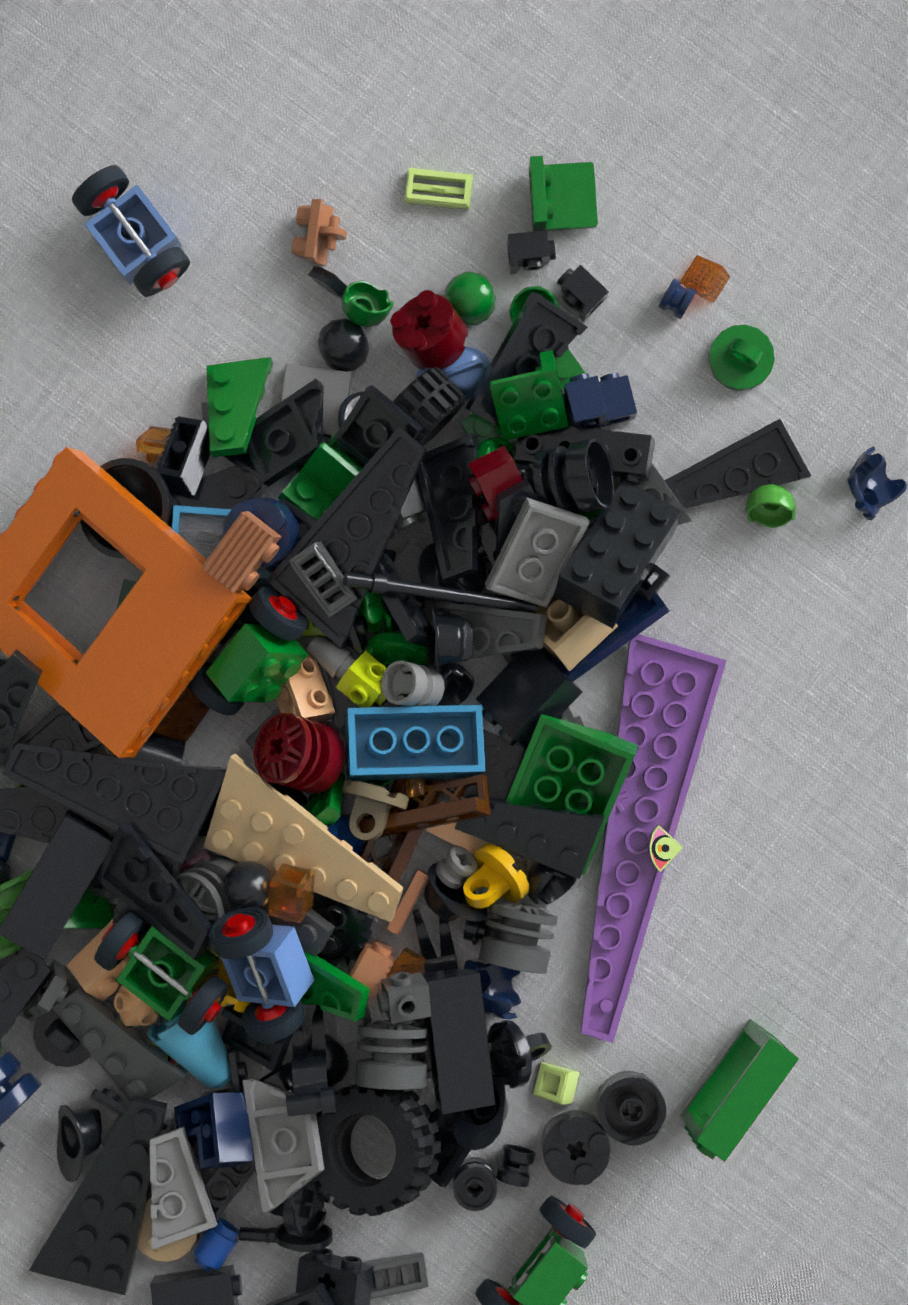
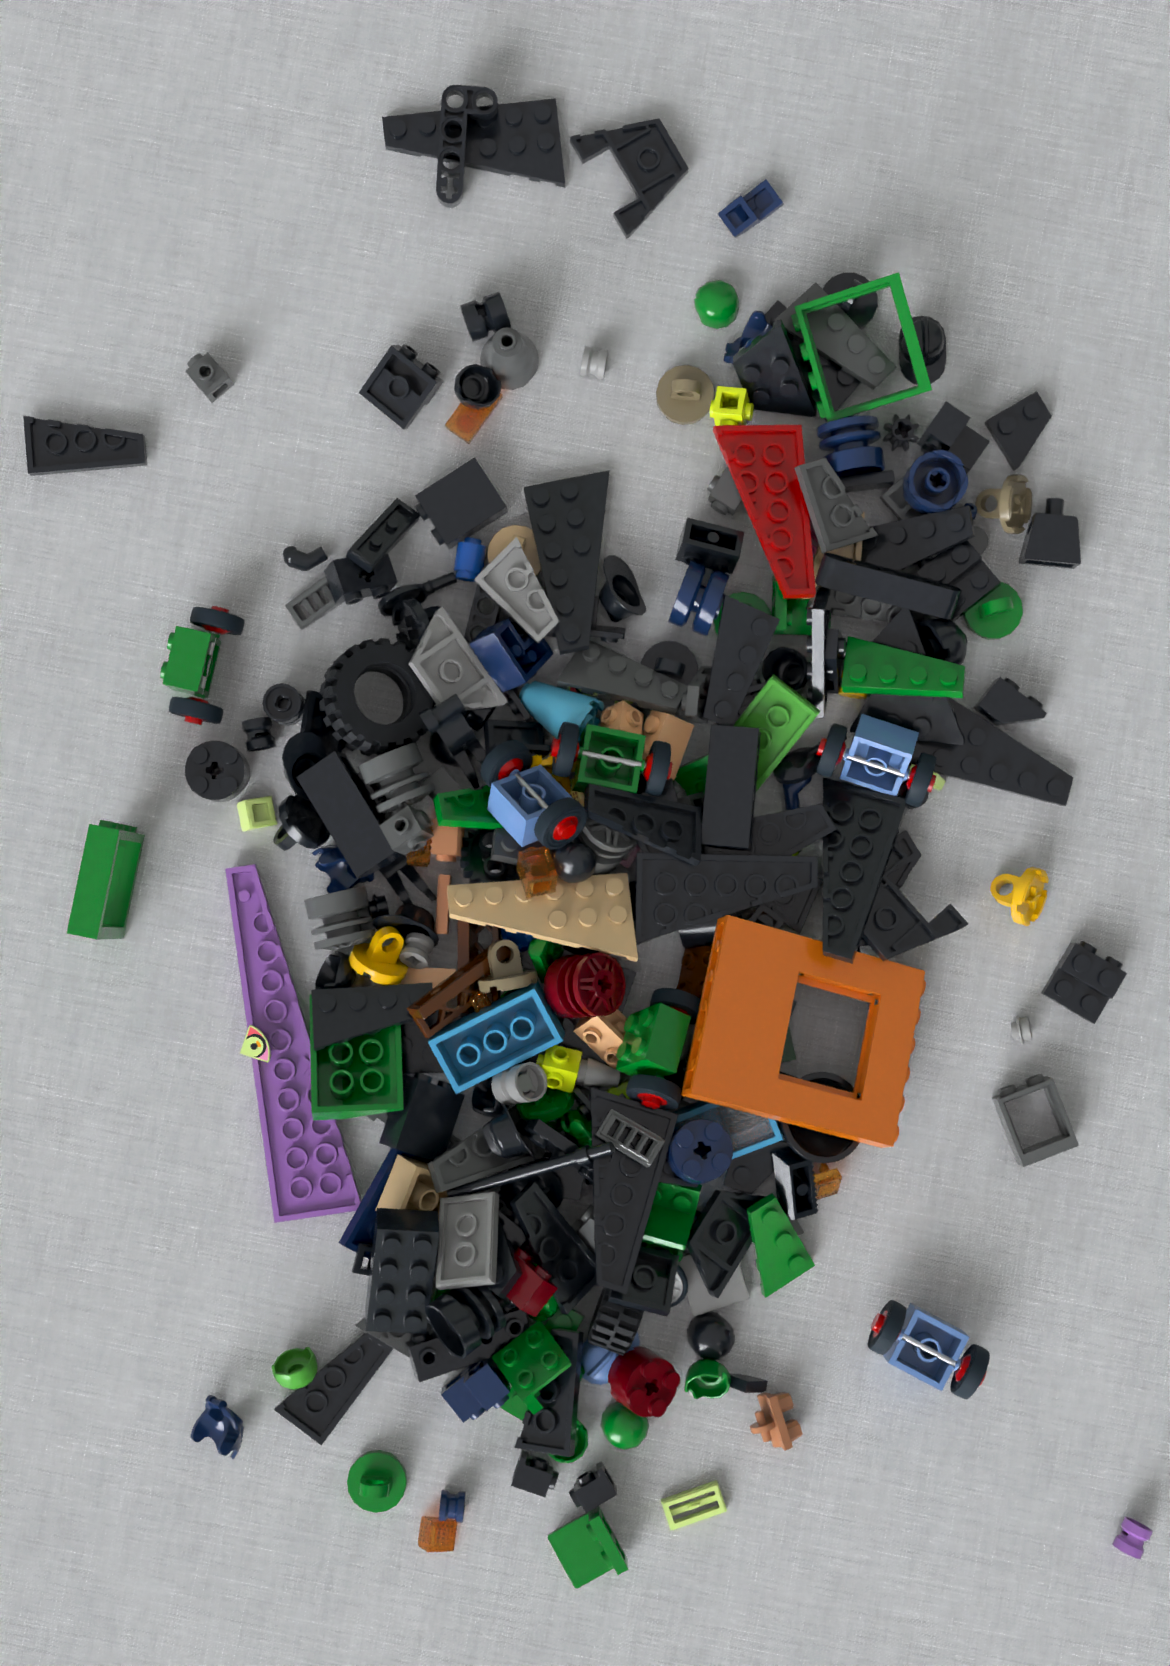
camera: 155 degrees right, 0 degrees up
(242, 552) = (704, 1130): nougat brick -> none
(648, 1115) = (170, 823): black brick -> none

